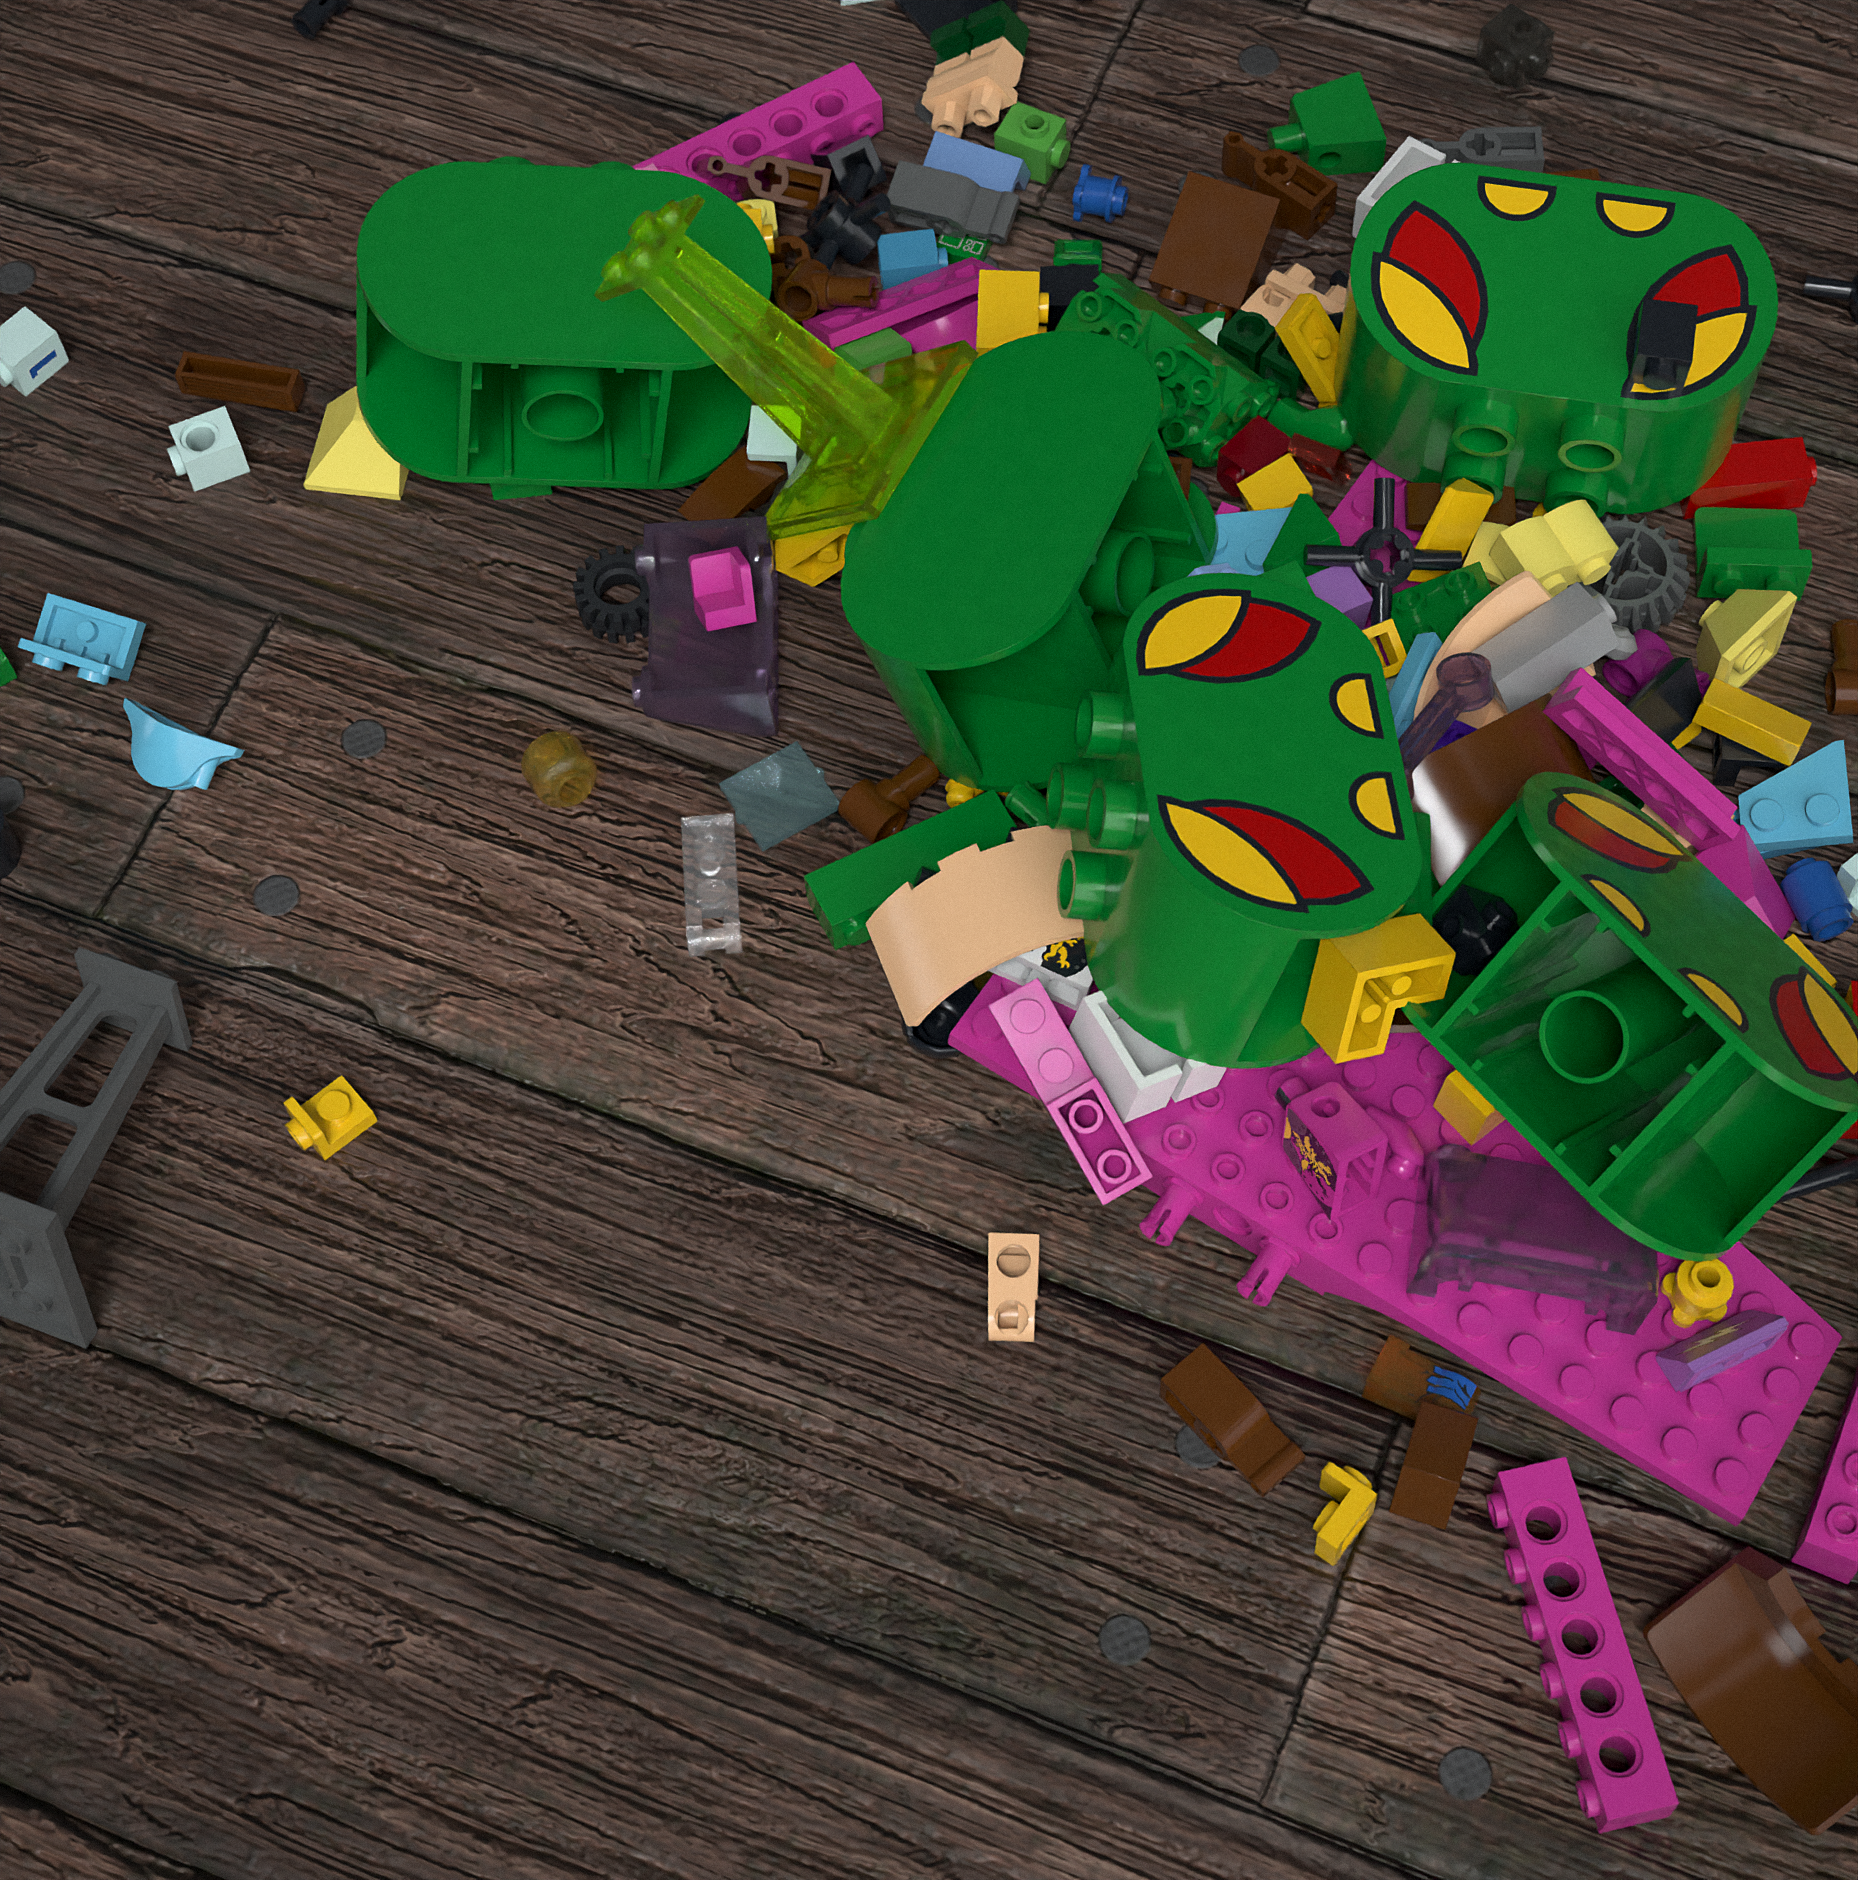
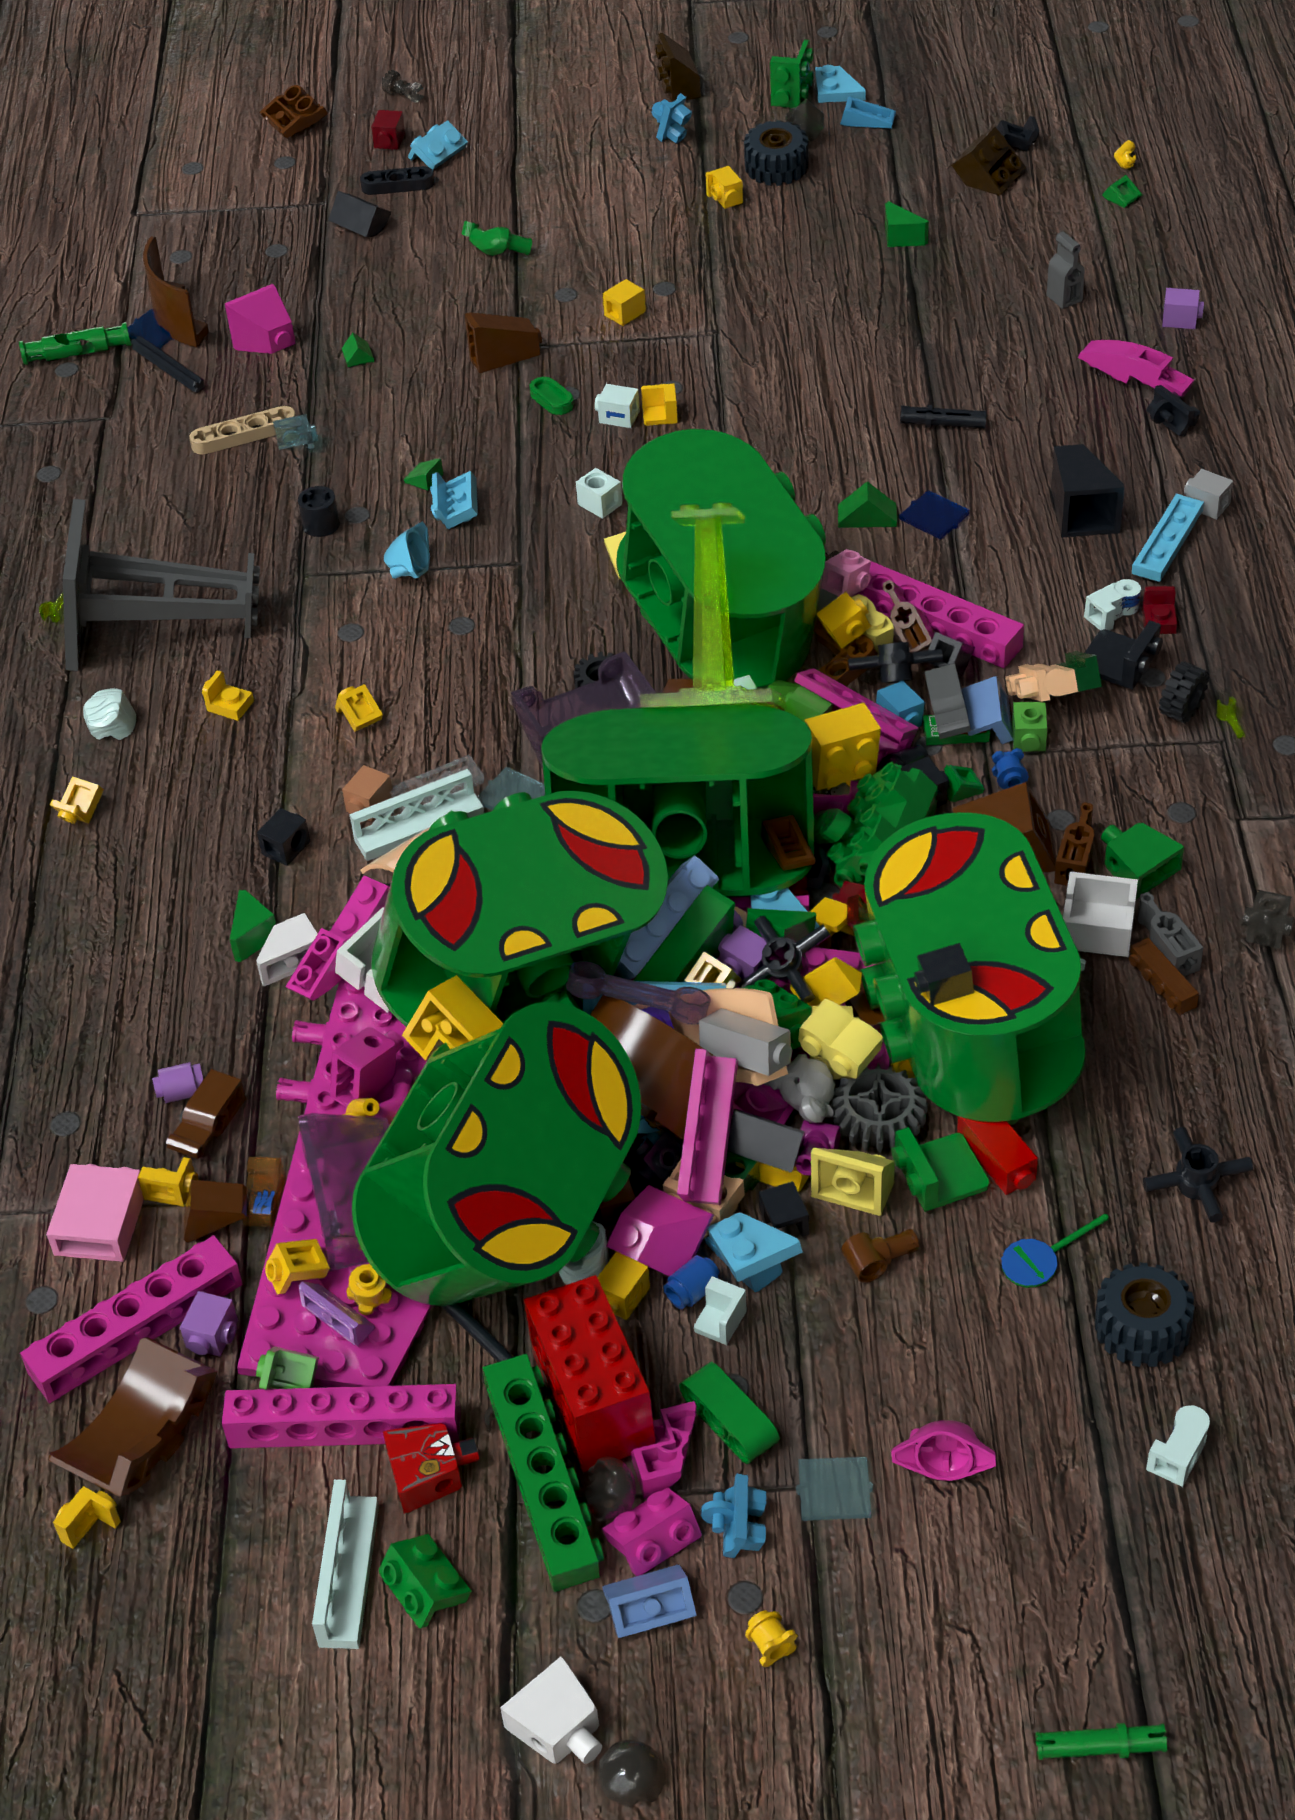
camera: 65 degrees right, 15 degrees down
(63, 297) = (659, 404): none -> yellow panel
(256, 1306) = (109, 714): none -> light aqua hair
(440, 1412) = (78, 801): none -> yellow bracket
(475, 933) = (358, 707): none -> yellow bracket
(476, 137) = (867, 509): none -> green slope
(530, 79) = (934, 514): none -> clear blue piece
(559, 769) = (474, 697): clear yellow head -> none
(679, 983) = (366, 789): none -> nougat brick
(703, 1129) = (283, 836): none -> black brick
(722, 588) = (616, 697): dark pink panel -> none
(768, 937) = (391, 831): none -> light aqua fence
(824, 289) = (836, 663): reddish brown pin -> none
(867, 1236) = (250, 926): none -> green slope
(946, 1195) = (285, 949): none -> white slope
(1012, 1286) = (246, 994): light nougat leg -> none
(1145, 1438) = (177, 1081): none -> medium lavender brick
(1351, 1634) = (96, 1213): none -> bright pink brick
(1399, 1188) = (362, 1107): none -> yellow arm
(1628, 1371) = (294, 1263): none -> yellow bracket
(1640, 1537) = (209, 1324): none -> medium lavender brick
(1752, 722) = (790, 1192): yellow slope -> none
(1796, 1447) = (286, 1369): none -> bright green bracket

